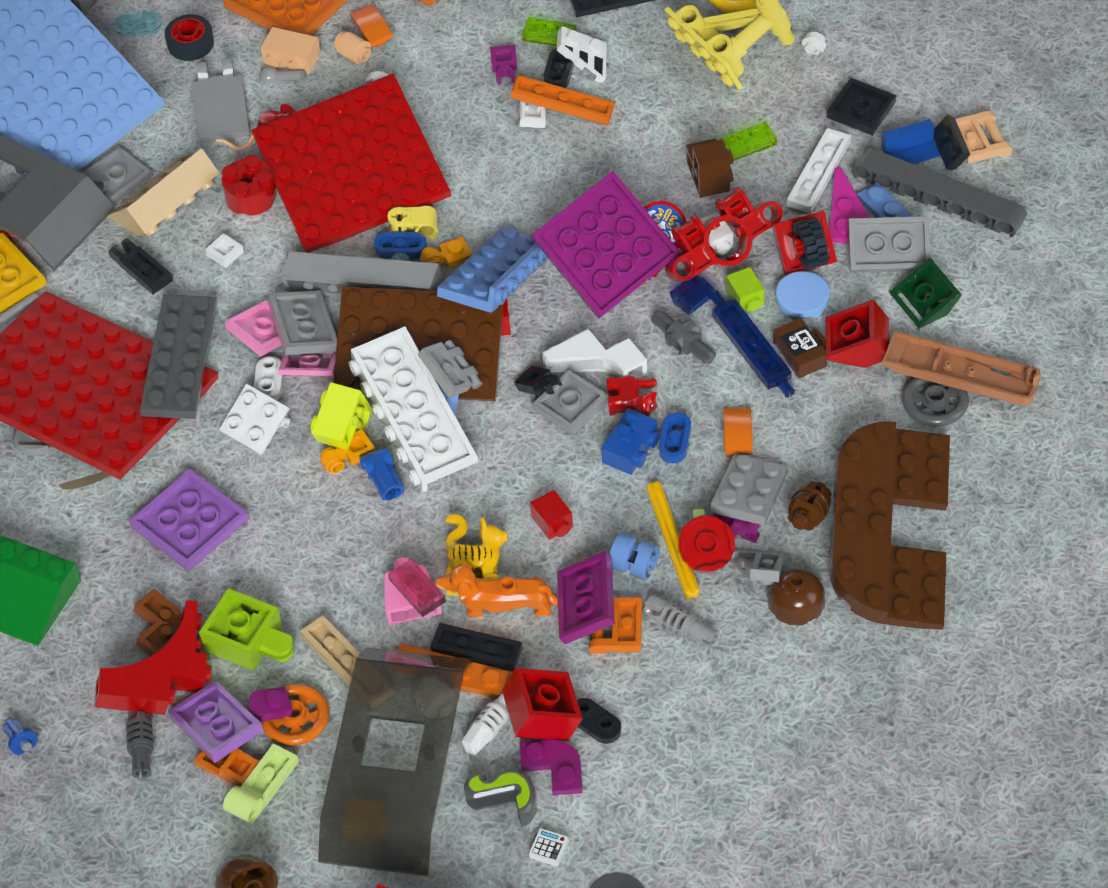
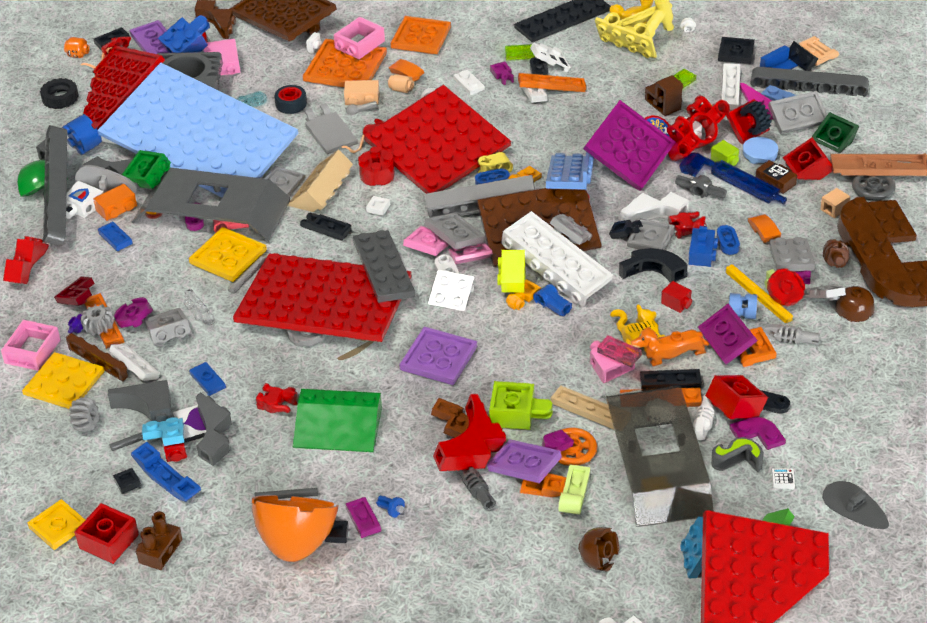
camera: 20 degrees left, 10 degrees down
(450, 67) = (468, 82): none -> white plate
(551, 445) = (655, 260): none -> black arch
(859, 413) = (833, 202): none -> light nougat brick

